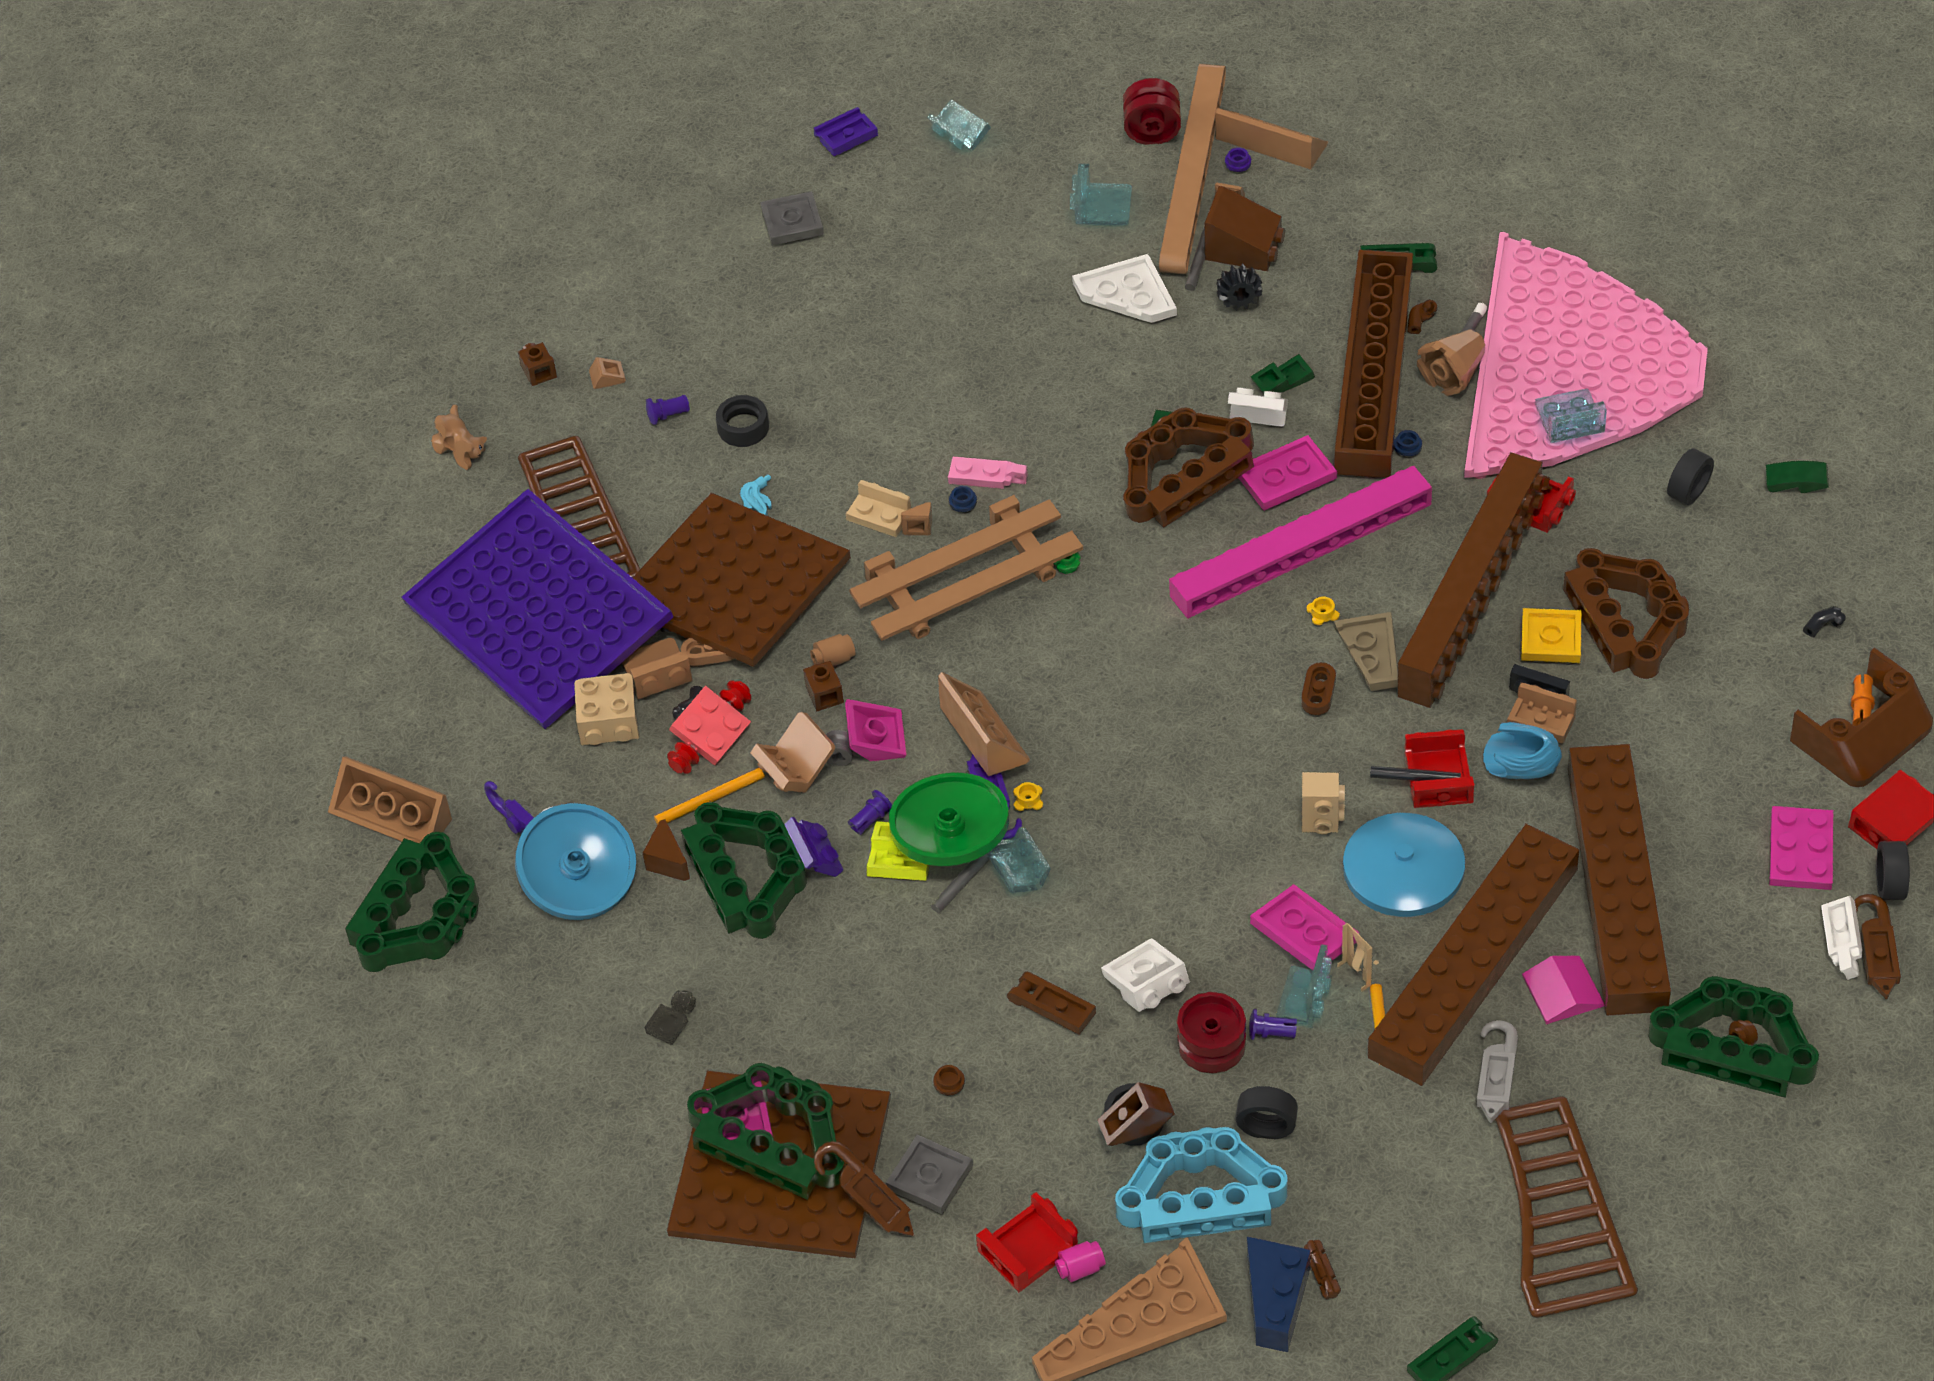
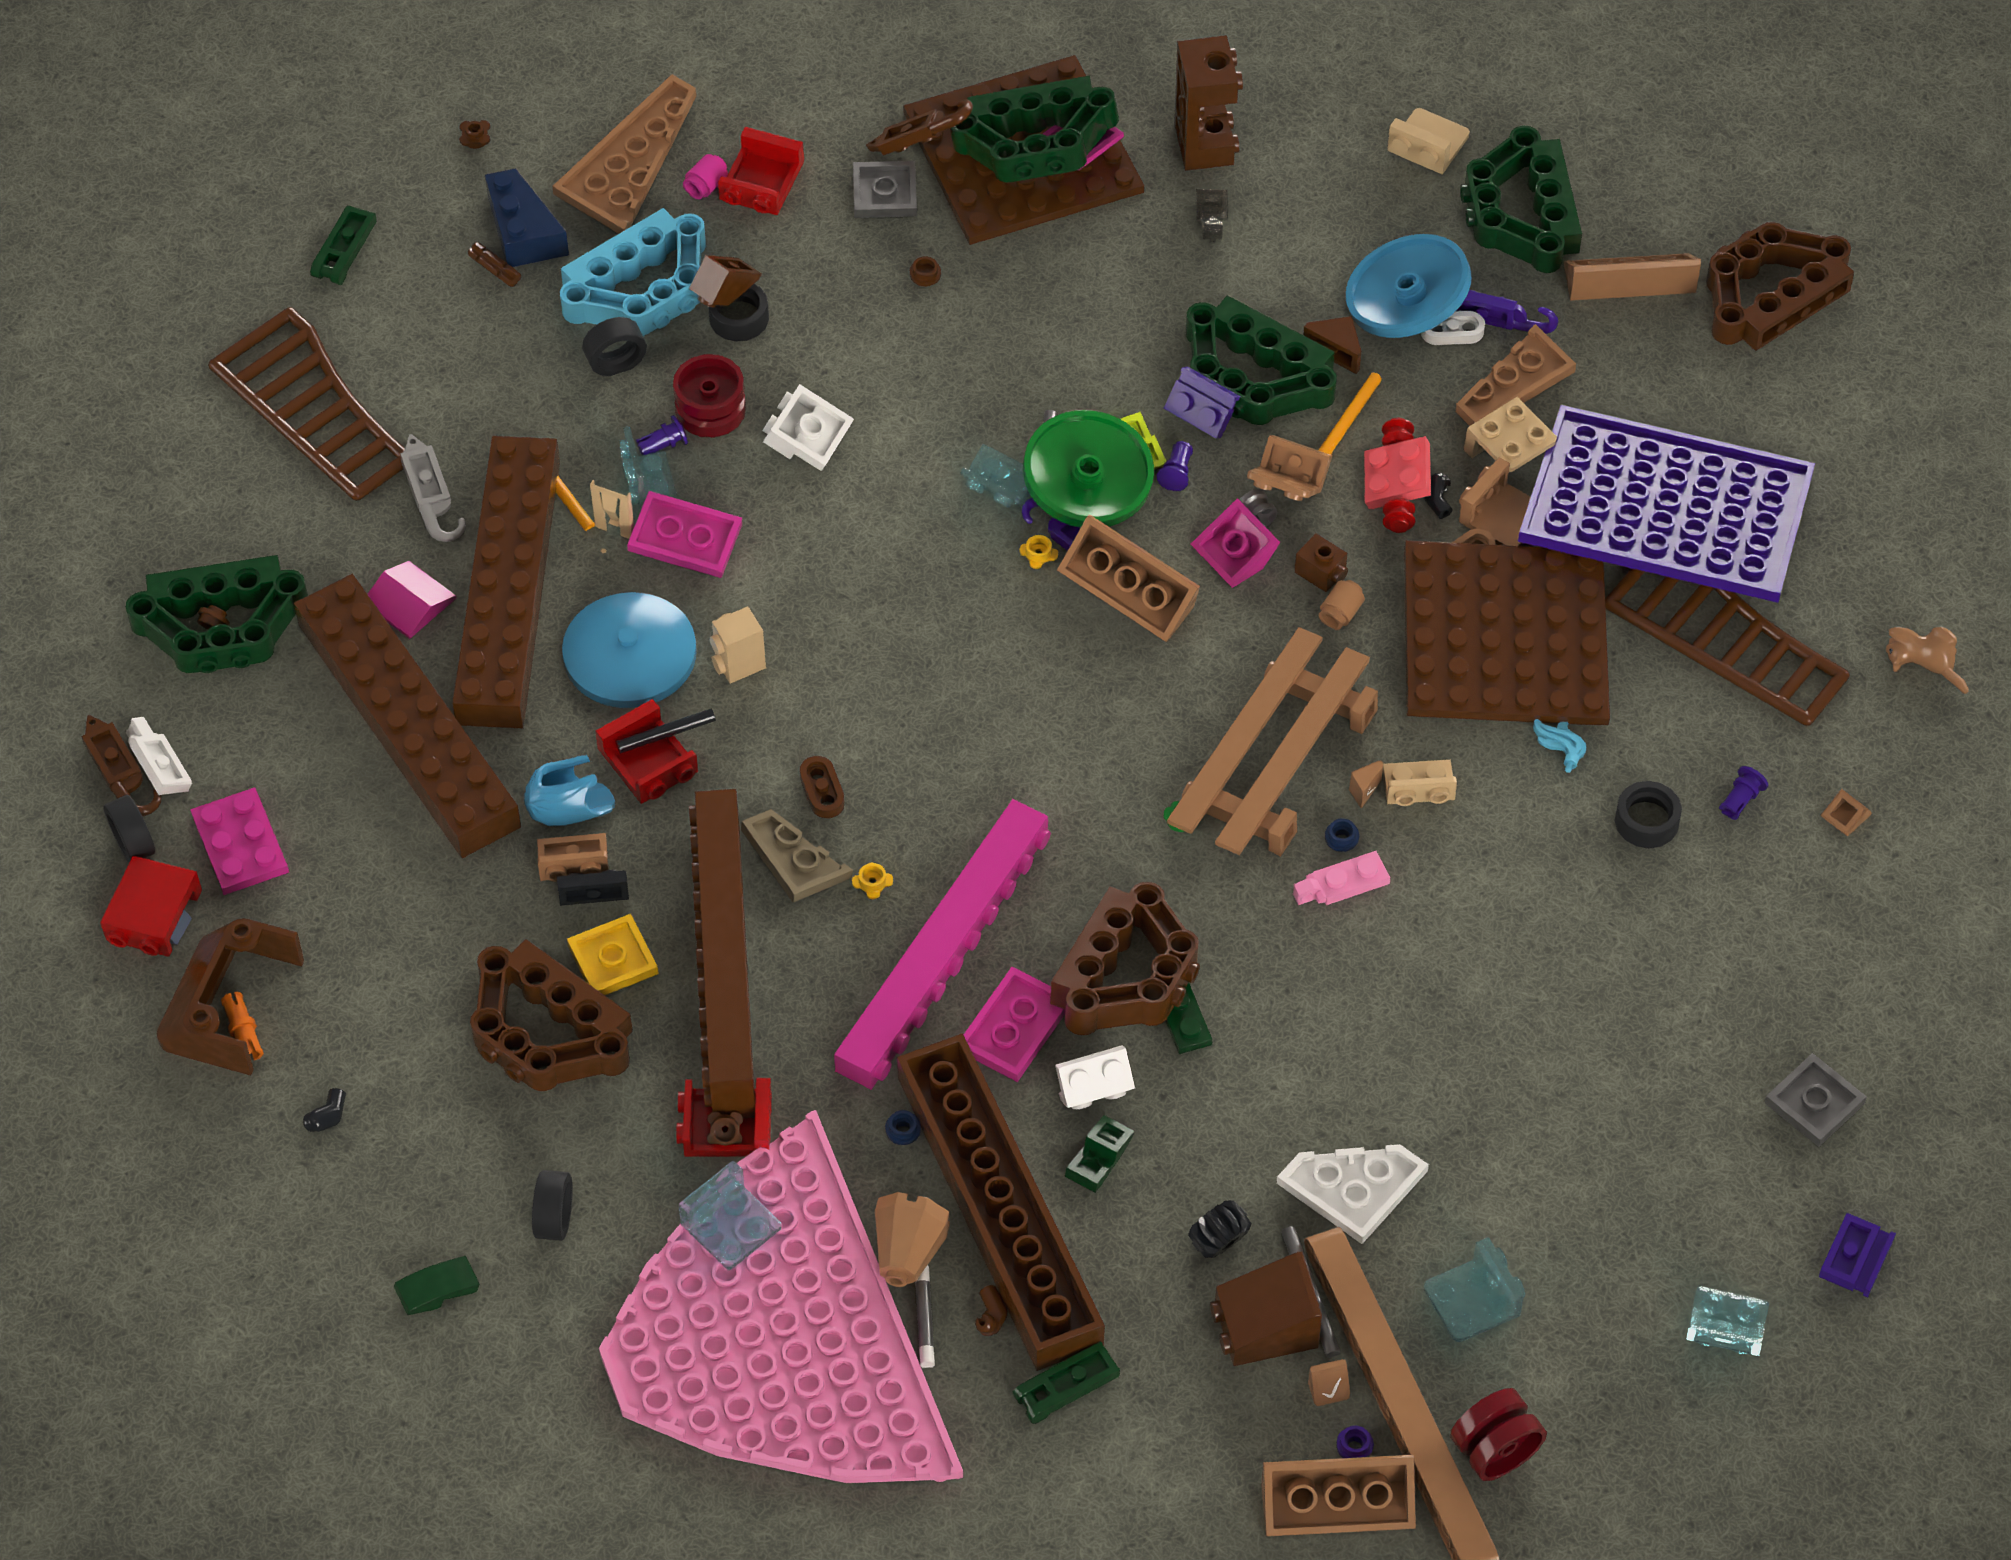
camera: 145 degrees right, 5 degrees up
(325, 722) = (1822, 281): none -> reddish brown brick
(443, 997) = (1427, 139): none -> tan bracket
(534, 357) = (1927, 779): reddish brown brick -> none
(552, 764) = (1524, 373): none -> medium nougat wing
(620, 1060) = (1203, 87): none -> reddish brown plate
(1052, 1002) = (880, 373): reddish brown plate -> none

